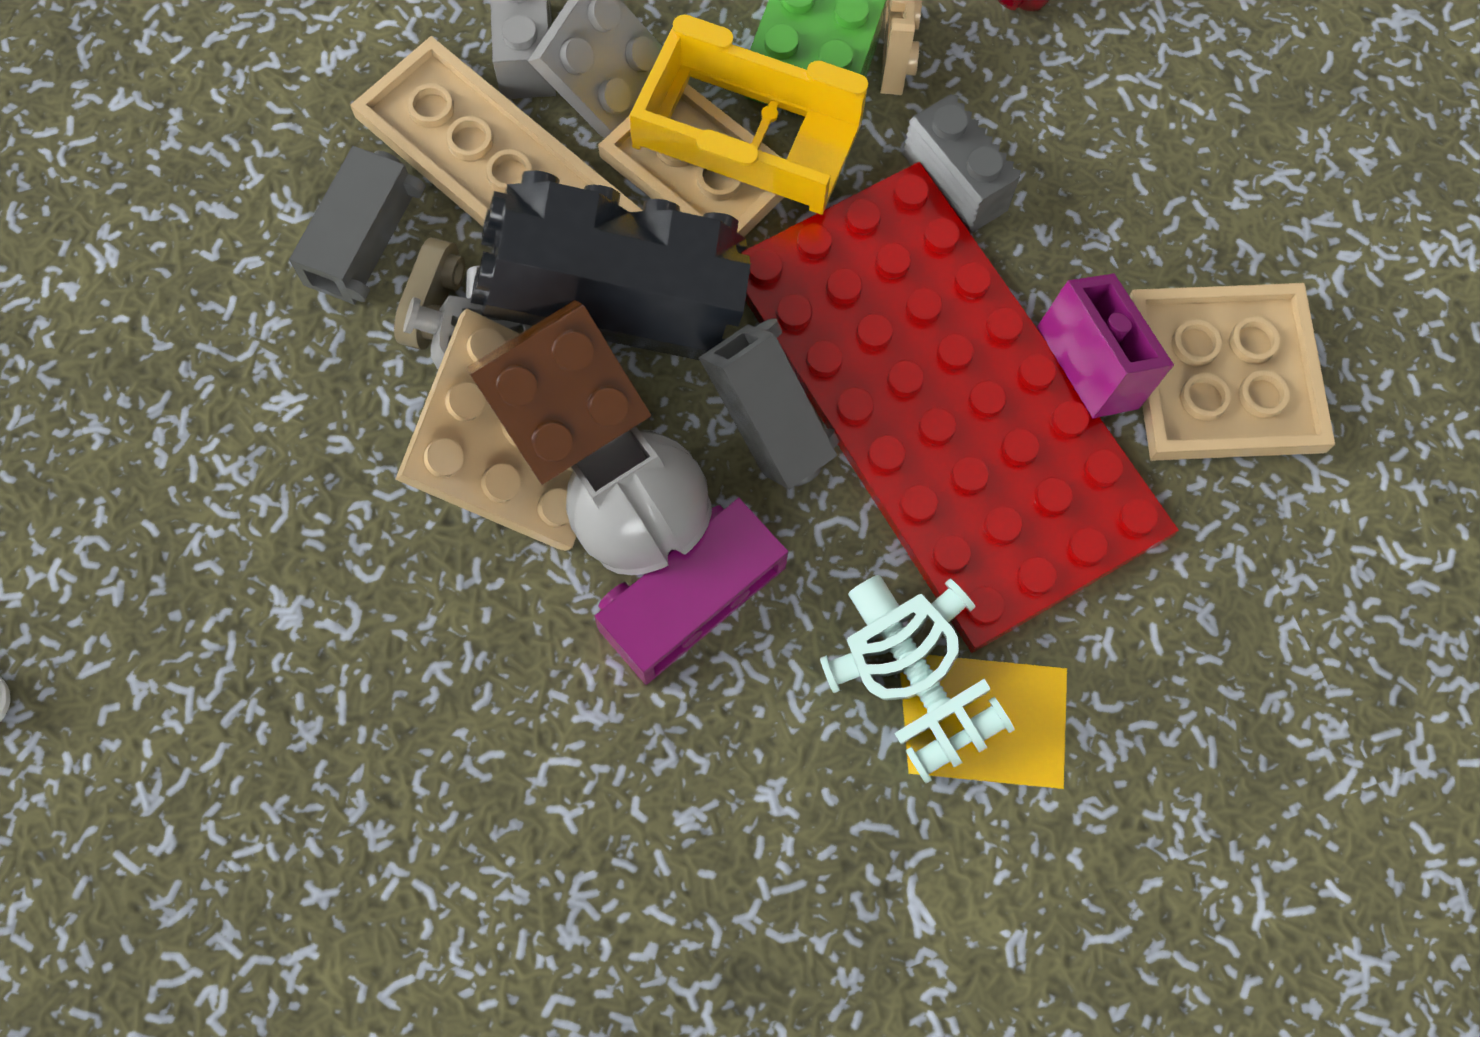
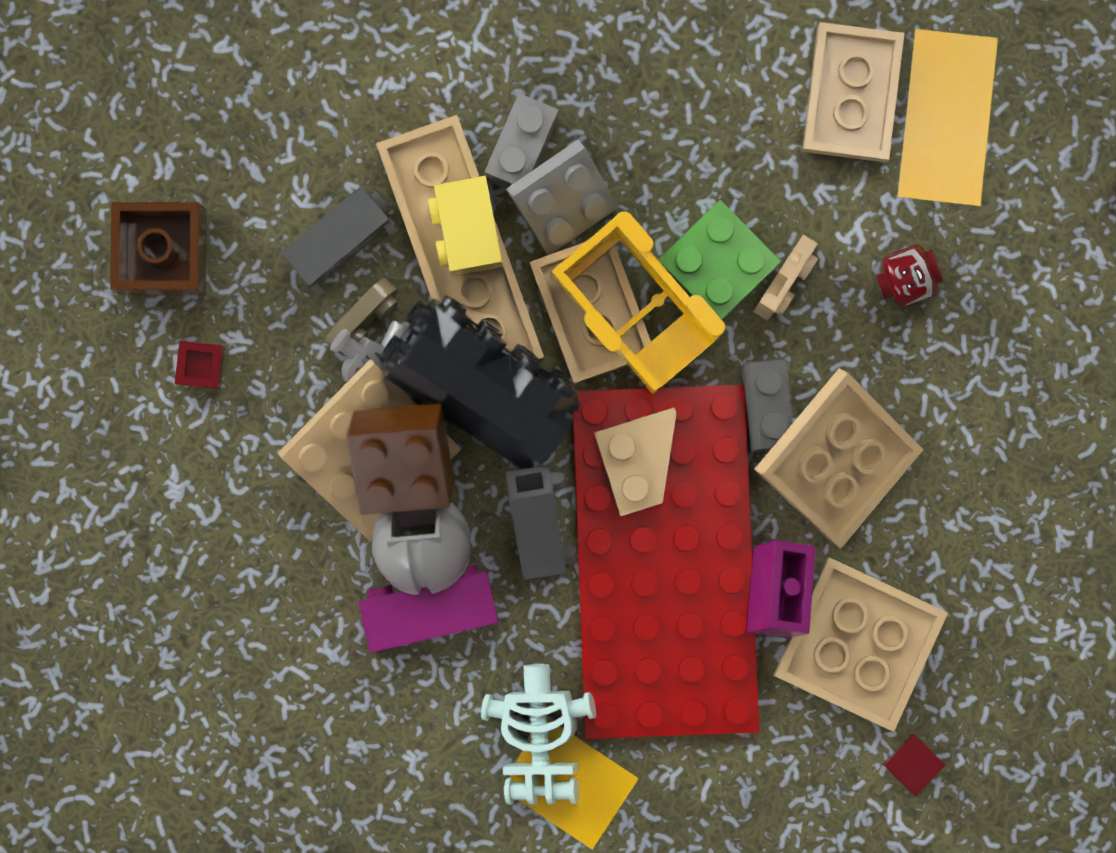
camera: 30 degrees right, 15 degrees up
(129, 329) = (158, 248): none -> reddish brown brick
(249, 445) = (199, 365): none -> dark red plate
(502, 124) = (466, 225): none -> light yellow brick
(847, 287) = (638, 459): none -> tan wing
(1077, 170) = (839, 458): none -> tan plate
(1378, 477) = (913, 764): none -> dark red tile

